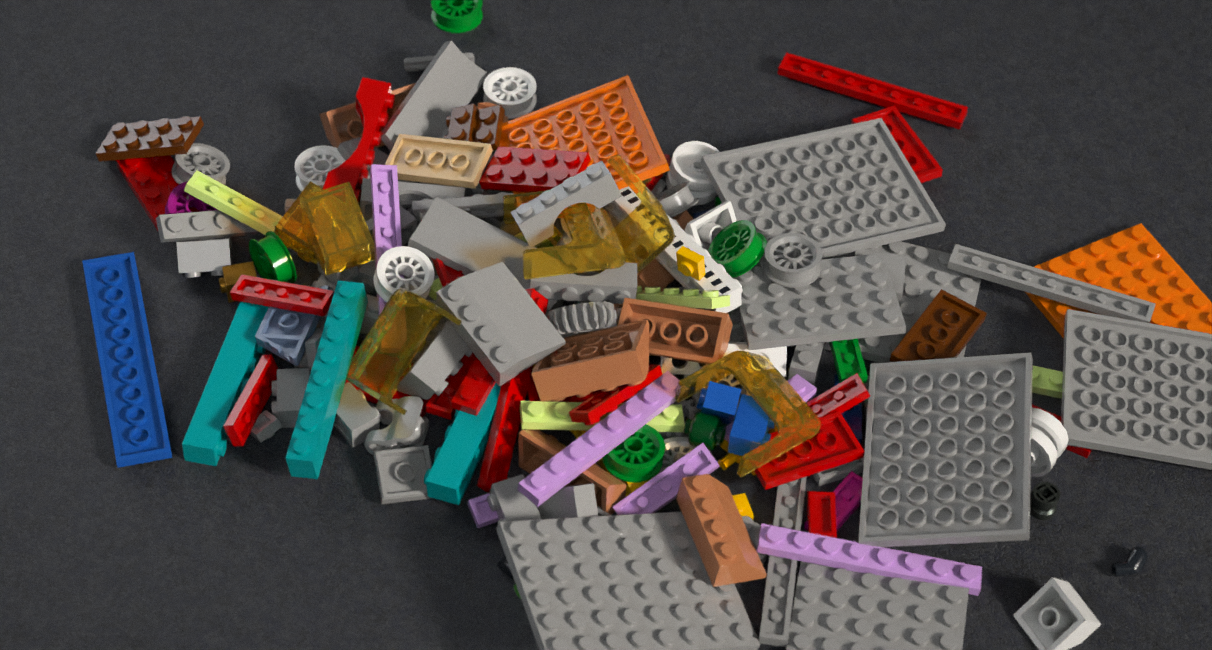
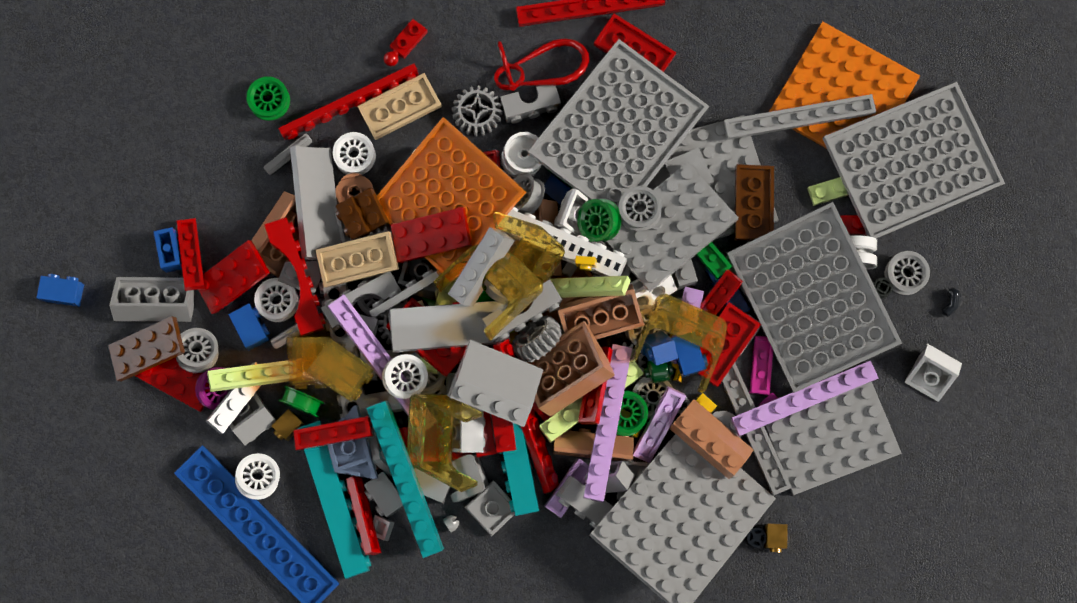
camera: 30 degrees left, 30 degrees up
(106, 57) = (60, 291): none -> blue brick
(167, 306) = (260, 459): none -> white wheel
(177, 97) = (151, 299): none -> light grey slope
(246, 73) = (168, 249): none -> blue brick
(264, 87) = (190, 254): none -> red plate
(273, 178) = (249, 326): none -> blue brick
(291, 122) = (233, 276): none -> red plate
(346, 464) = (452, 526): none -> light grey hinge
(543, 47) = (343, 104): none -> red plate
(576, 74) = (399, 106): none -> tan plate
(640, 31) = (405, 42): none -> red plate
(676, 117) = (469, 110): none -> light grey gear
(721, 135) = (516, 109): none -> light grey arch
(738, 60) = (545, 82): none -> red animal
(821, 513) = (759, 384): red tile -> none
(1089, 503) = (917, 259): none -> light grey wheel

